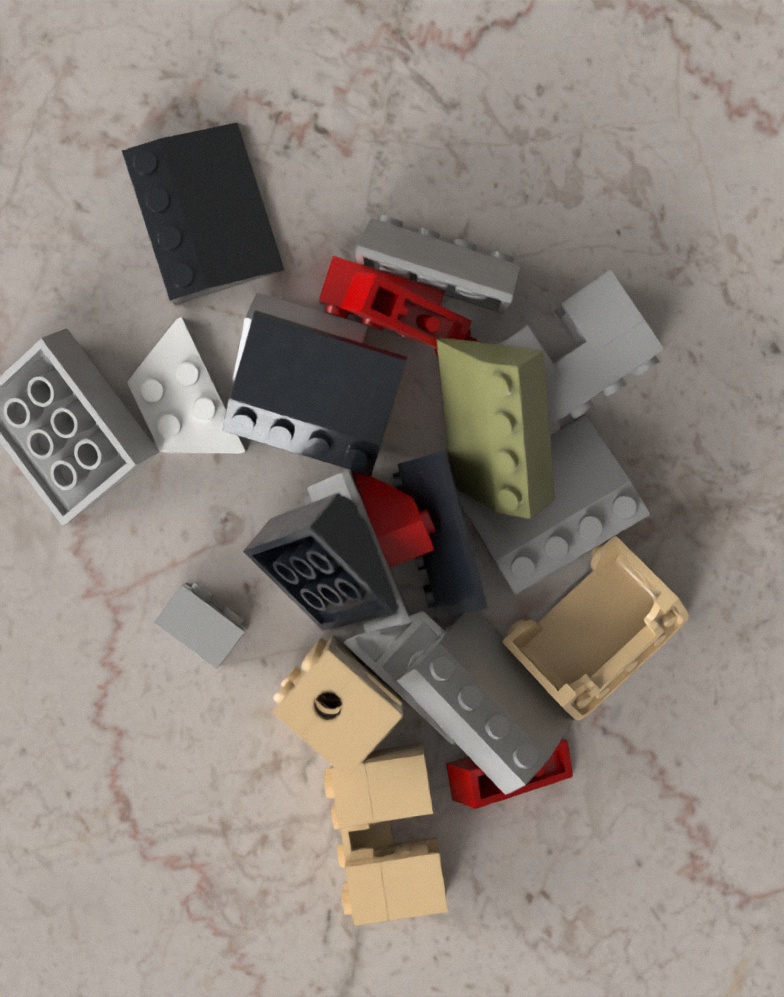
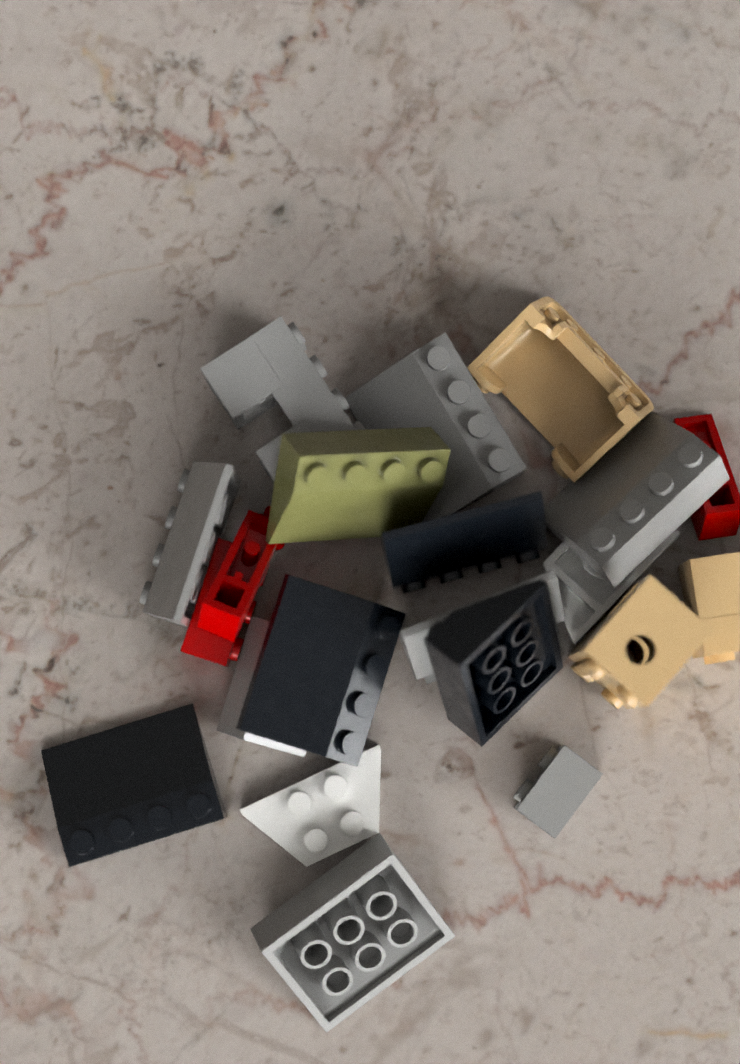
camera: 85 degrees left, 5 degrees down
(395, 520) = (451, 584): red slope -> none

